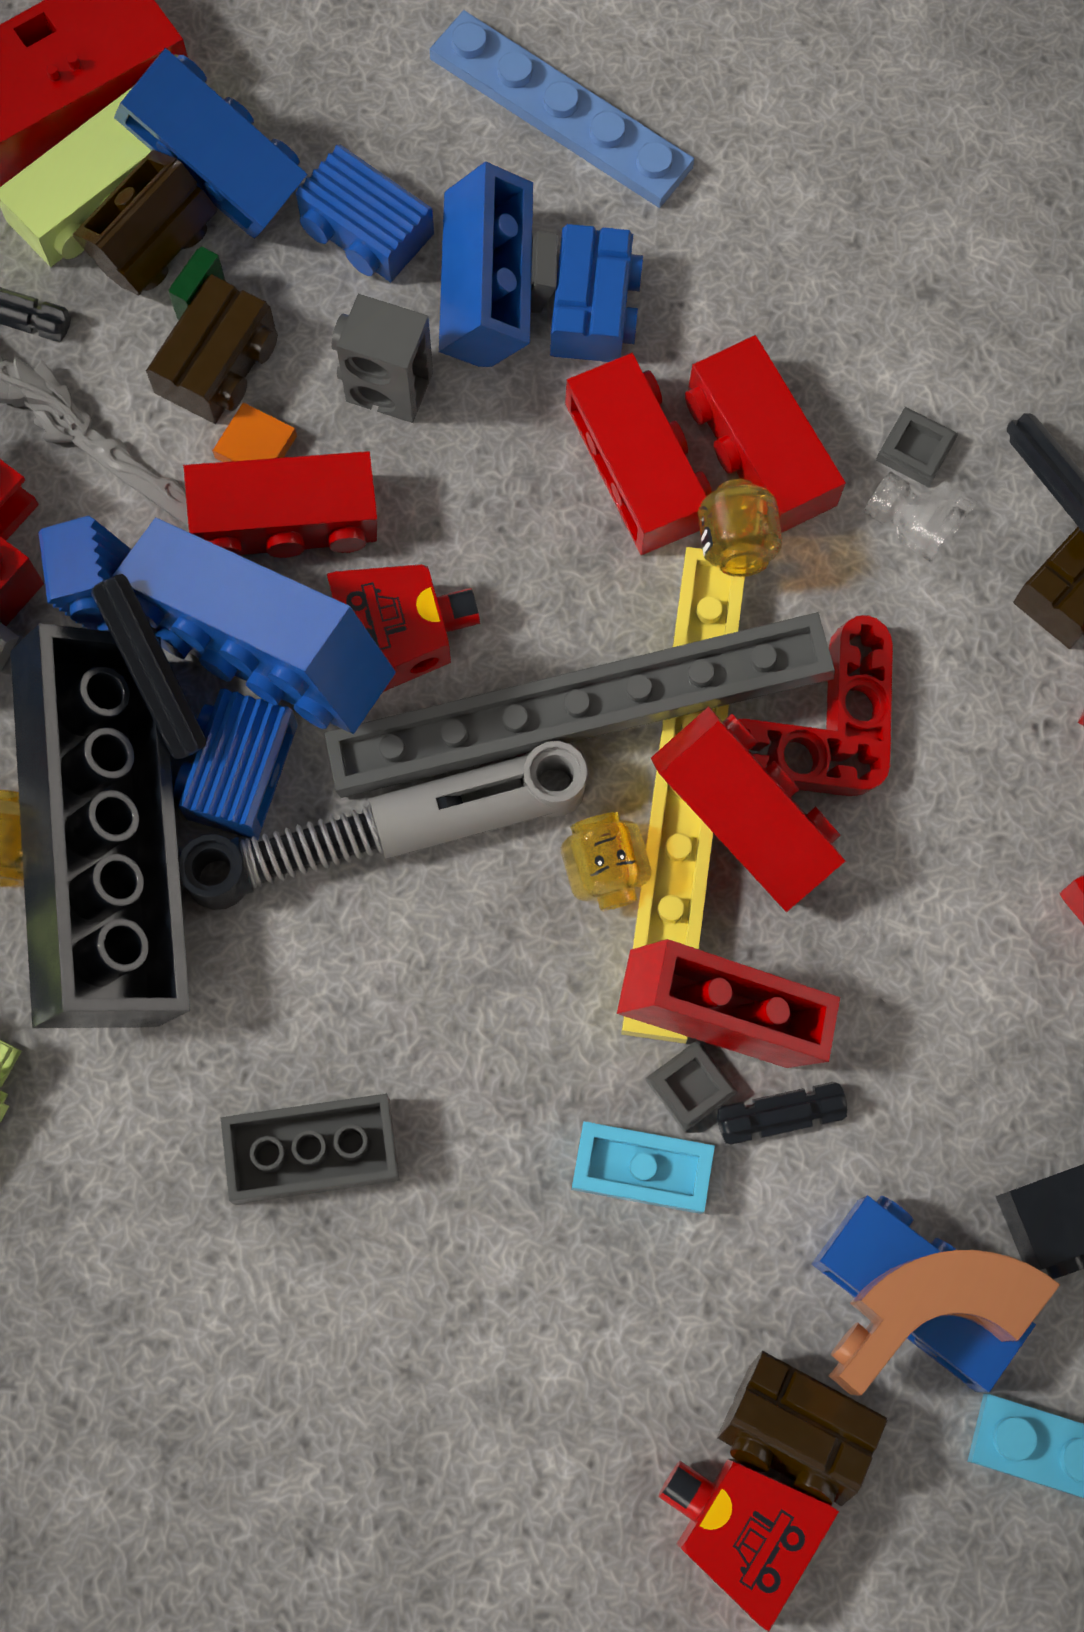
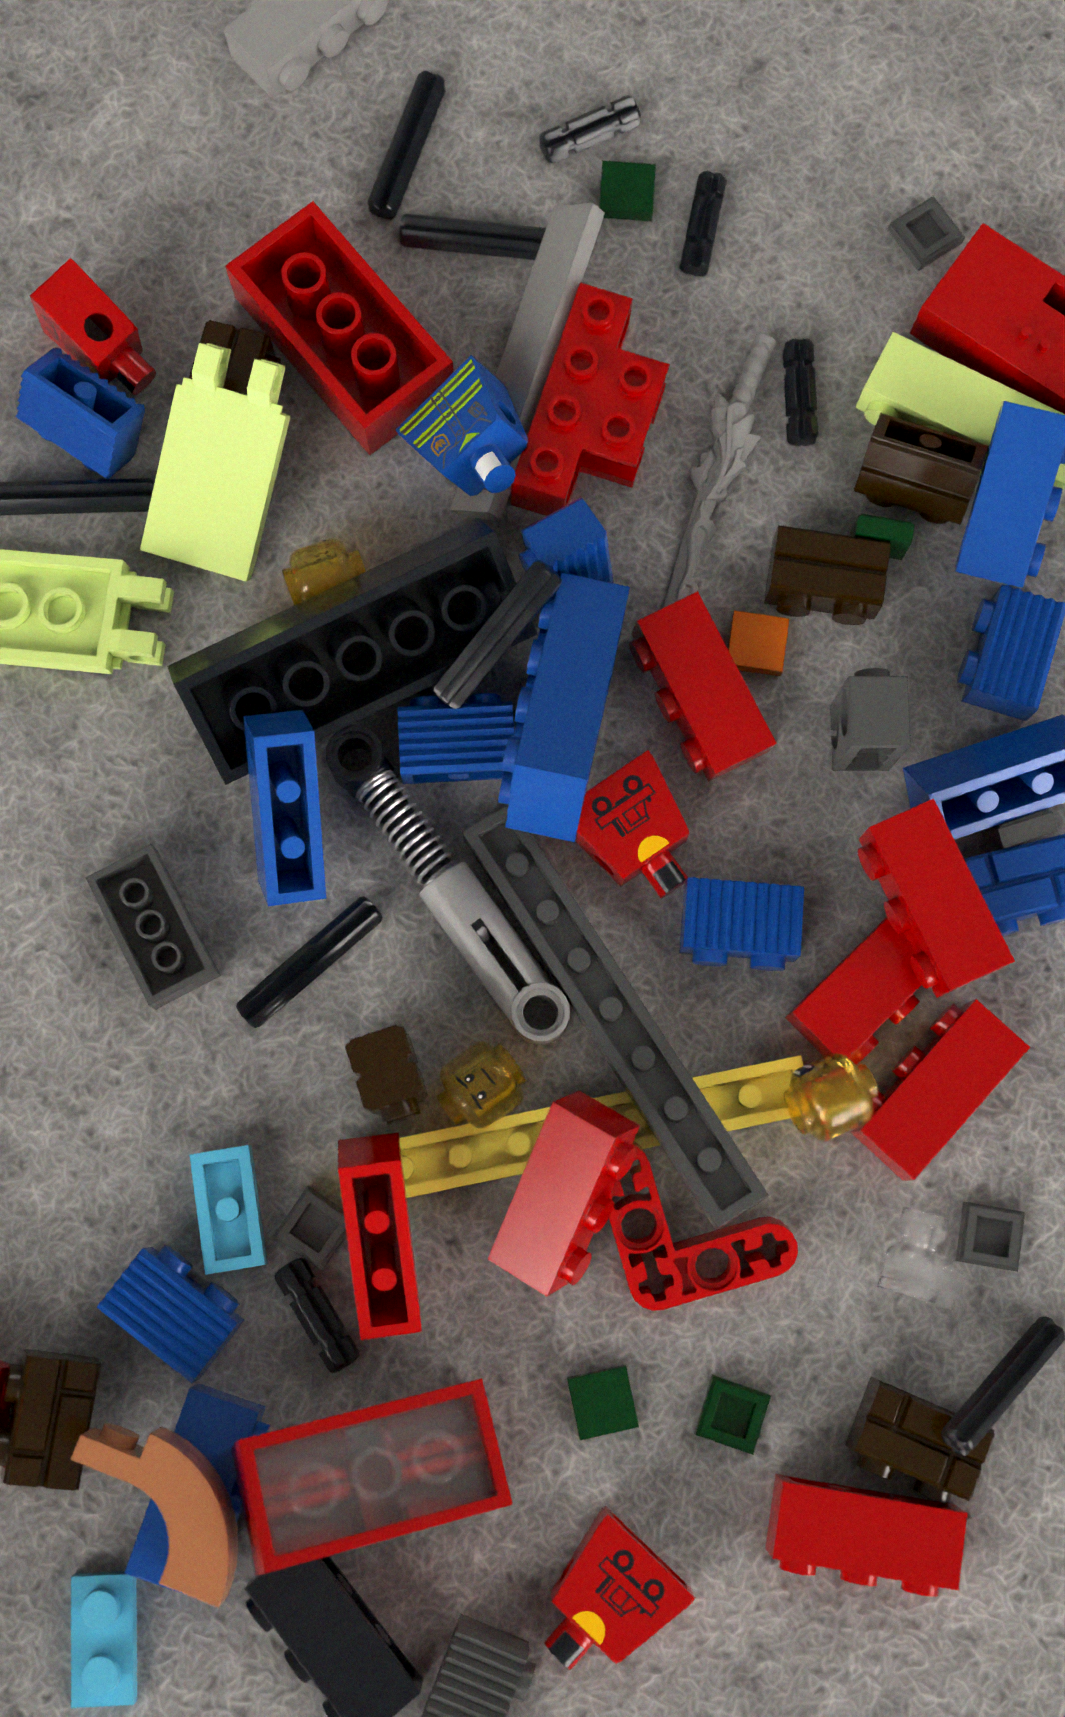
camera: 70 degrees right, 5 degrees up
(241, 949) = (285, 807): none -> blue brick
(411, 999) = (309, 962): none -> black axle
(533, 554) = (741, 922): none -> blue brick
(566, 942) = (387, 1074): none -> dark brown brick
(586, 358) = (933, 899): none -> red brick
(732, 1260) = (172, 1311): none -> blue brick
(960, 858) = (602, 1402): none -> dark green tile
(970, 1100) = (369, 1475): none -> clear brick
(1009, 740) = (732, 1414): none -> dark green tile

